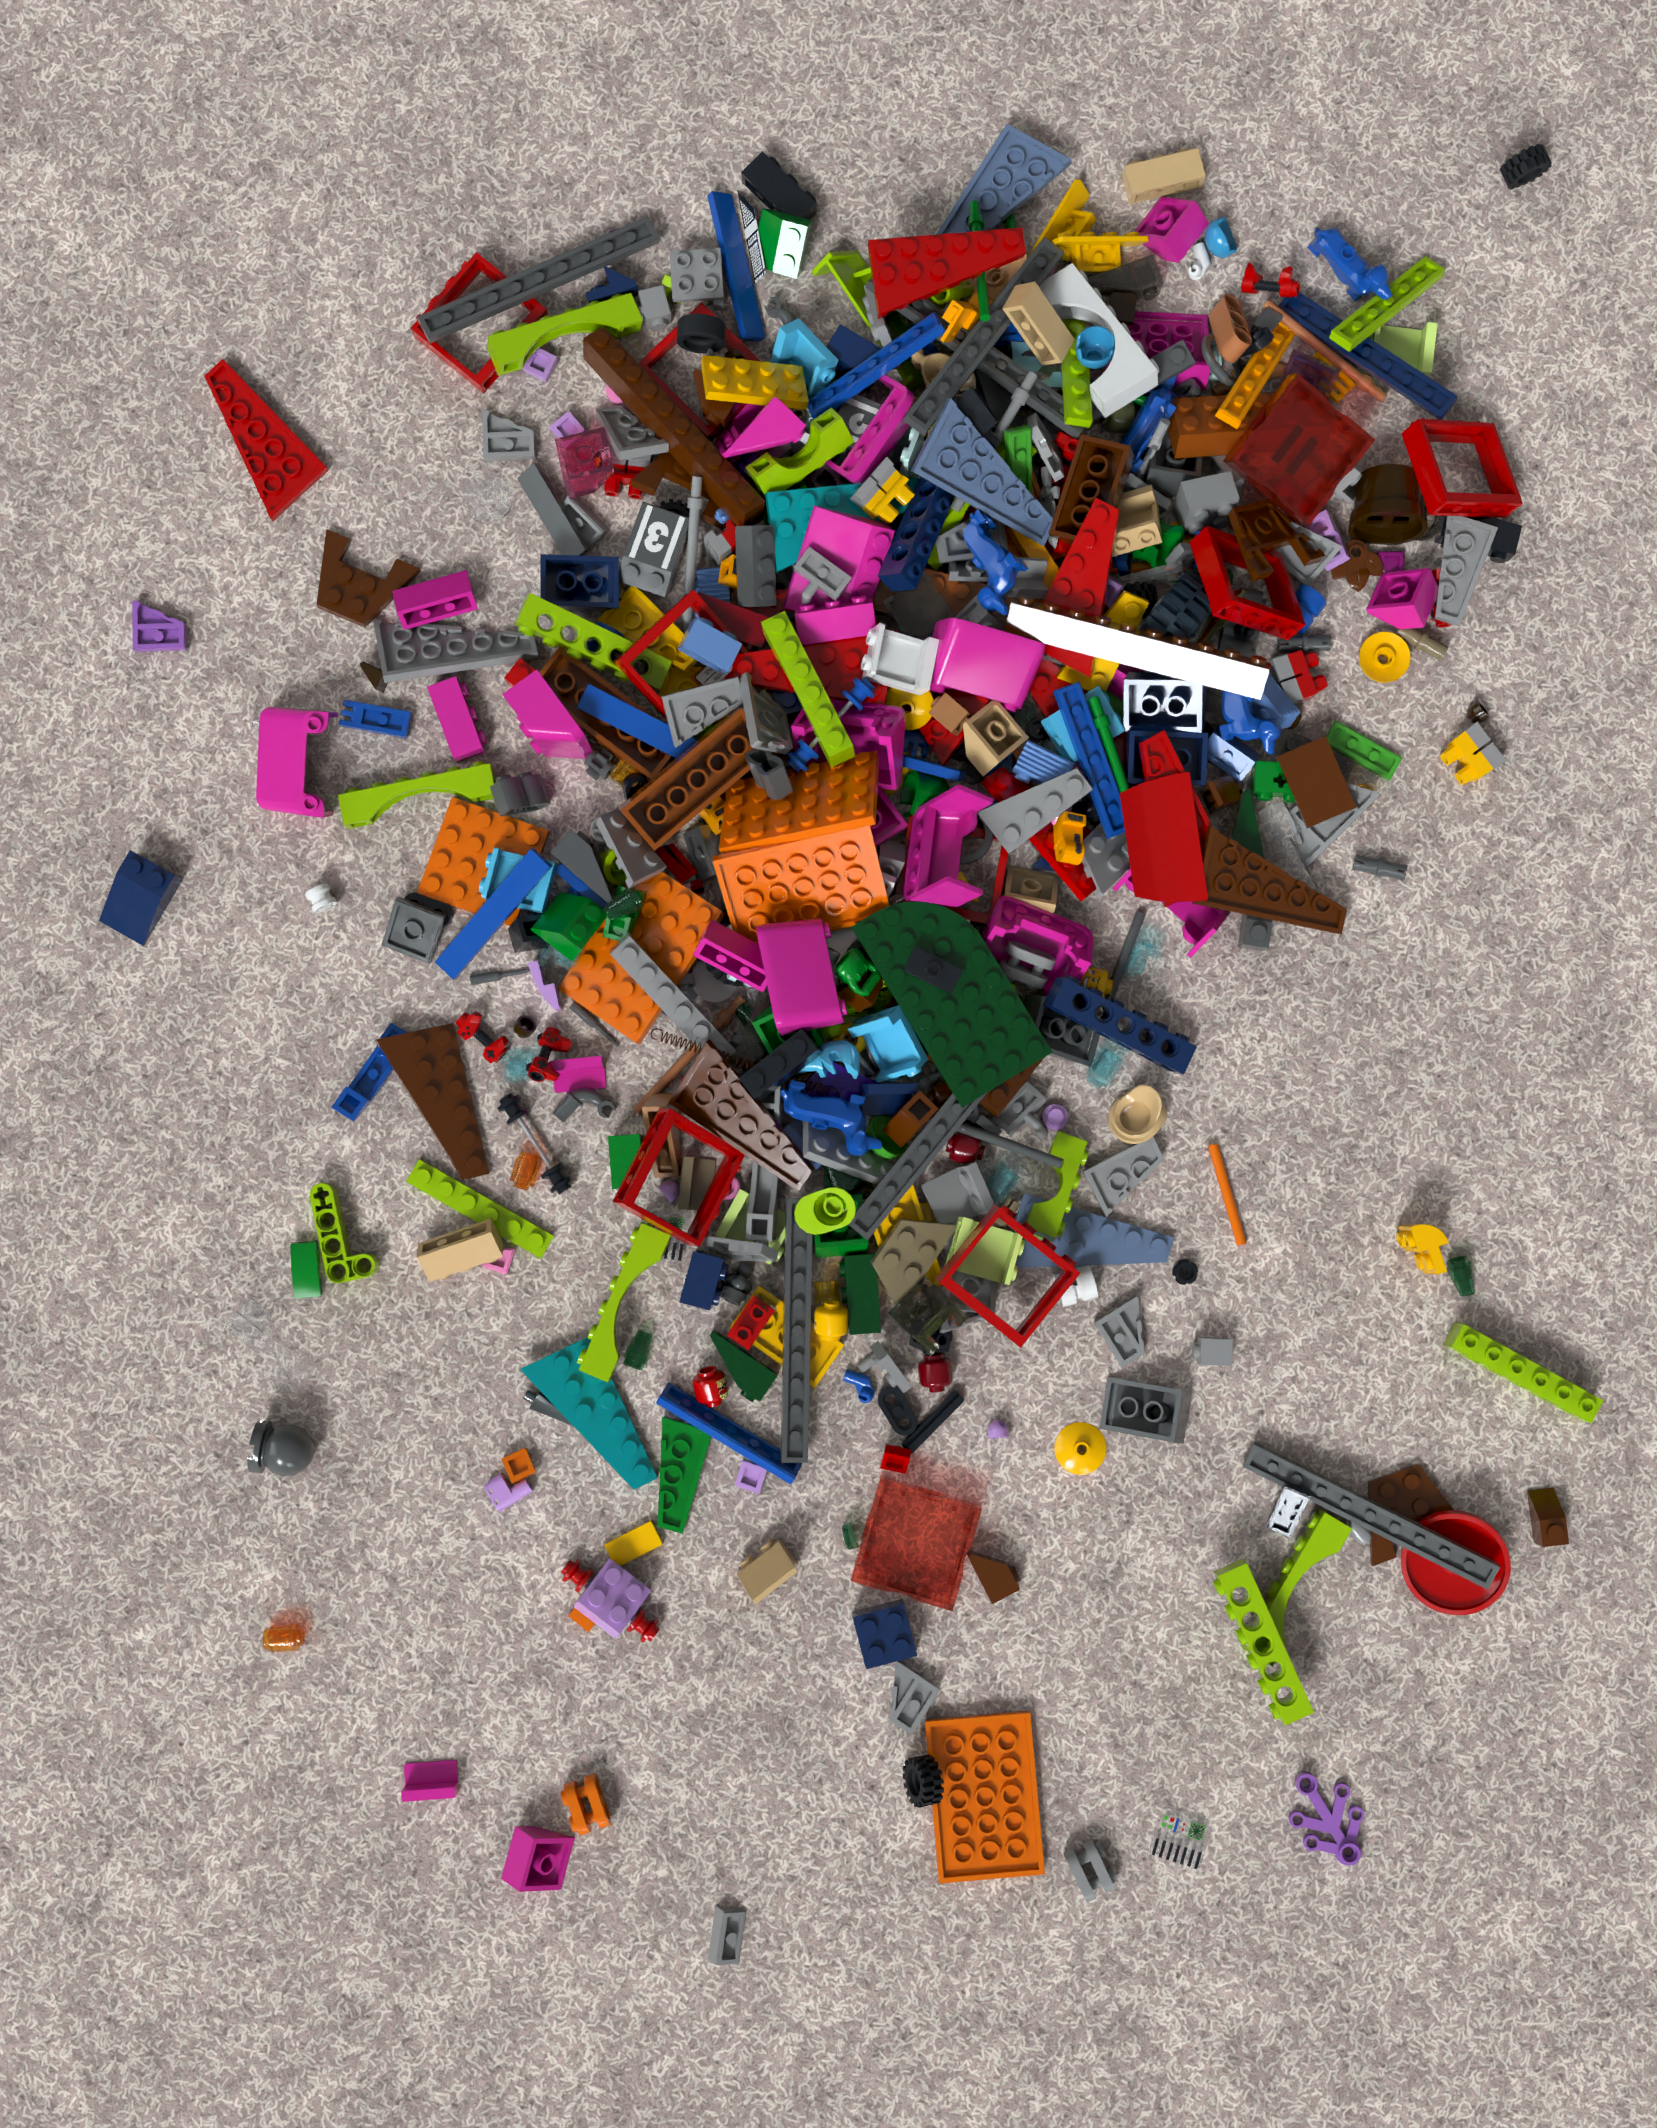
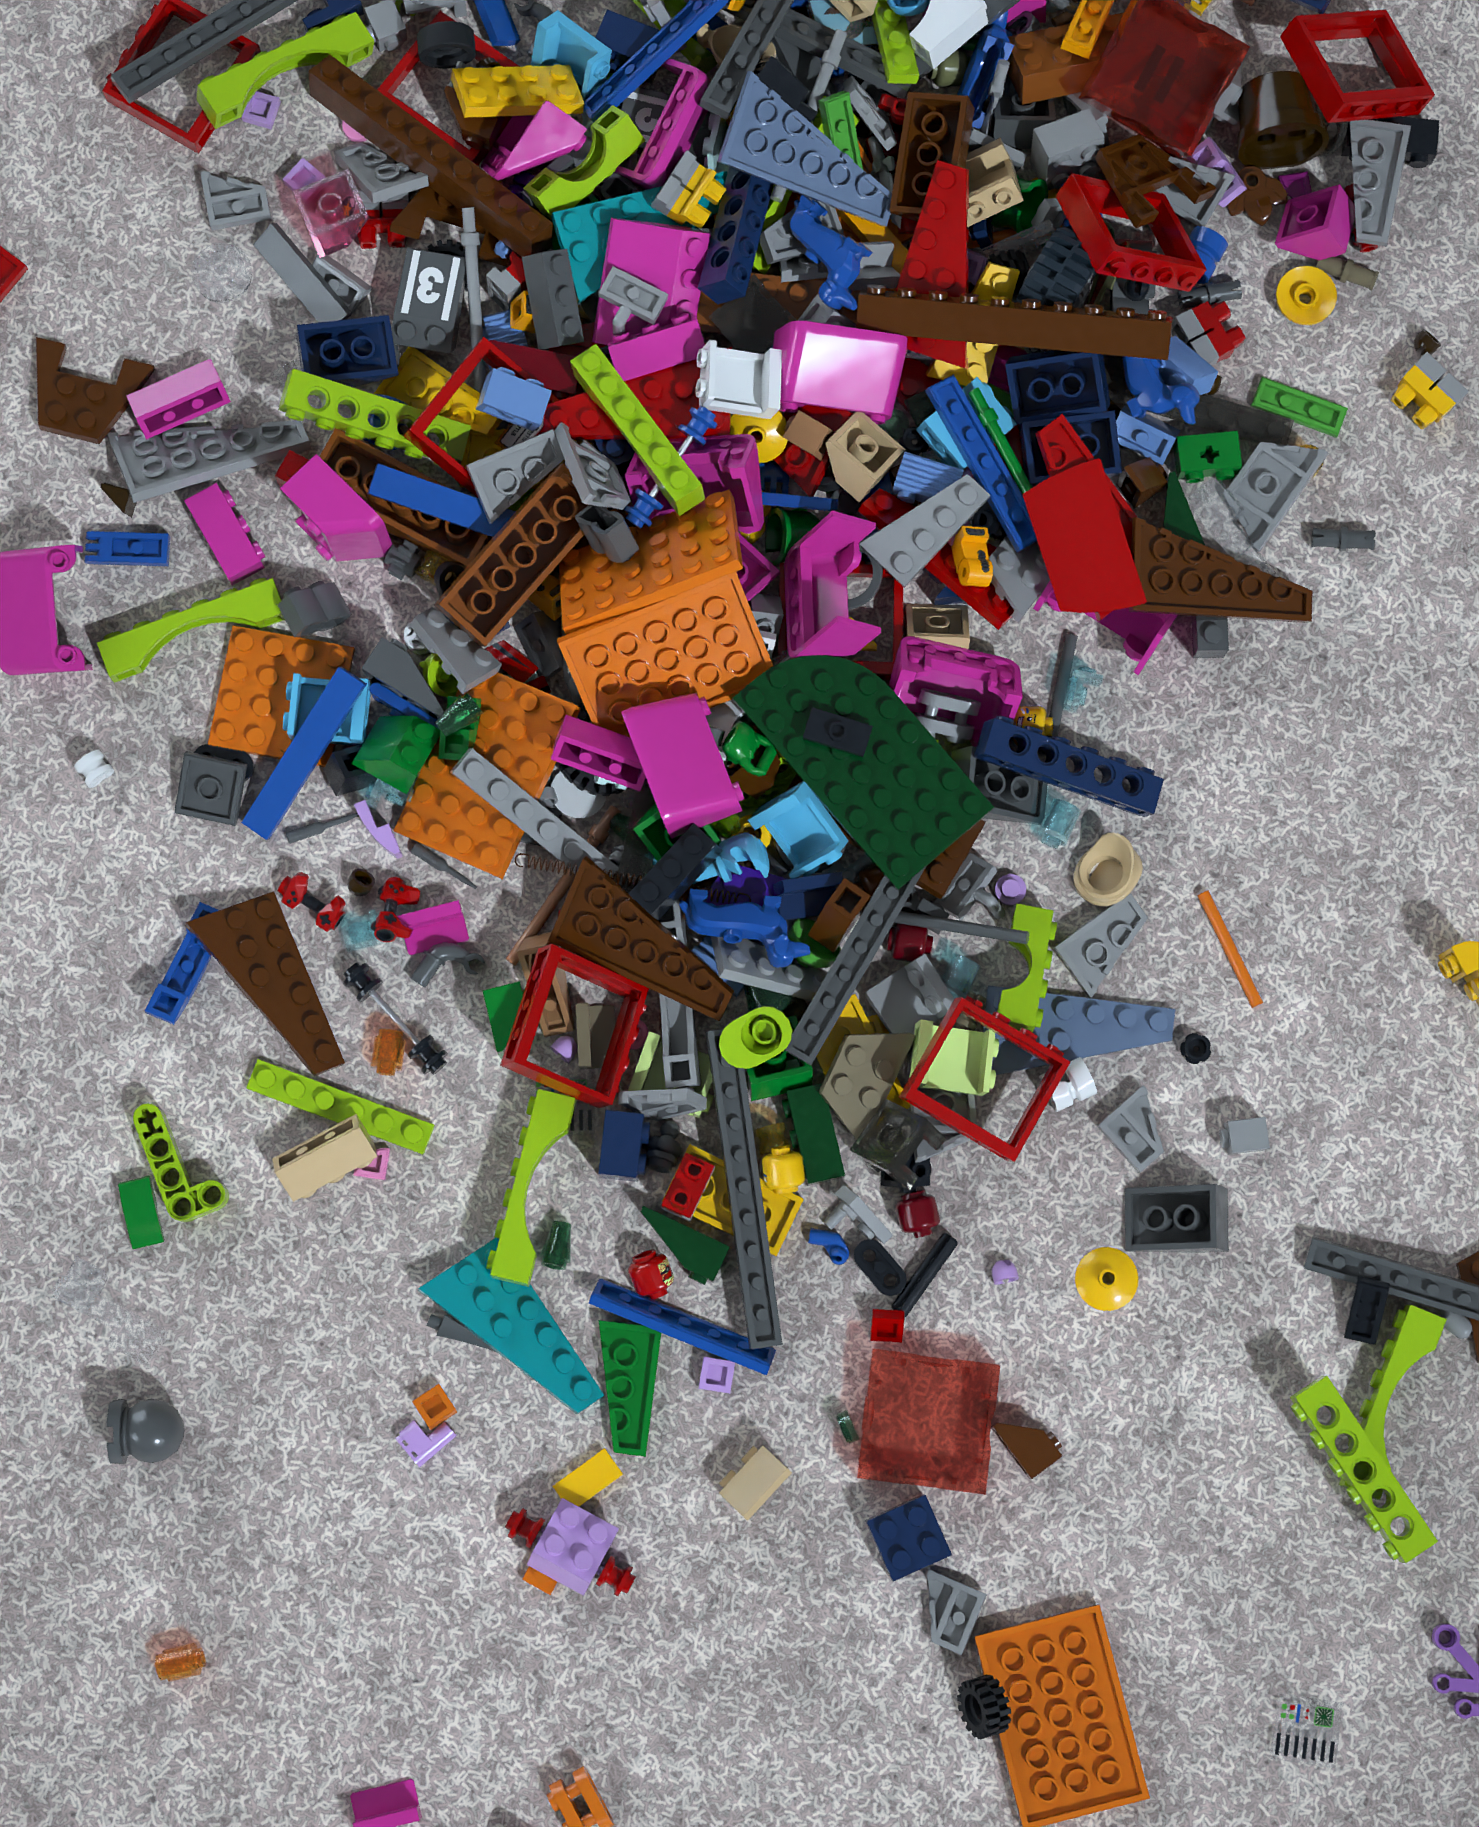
camera: 10 degrees left, 5 degrees down
(1047, 703) = (919, 407): none -> tile
(1105, 1876) = (1223, 1789): light grey brick -> none
(1316, 782) = (1251, 449): reddish brown tile -> none

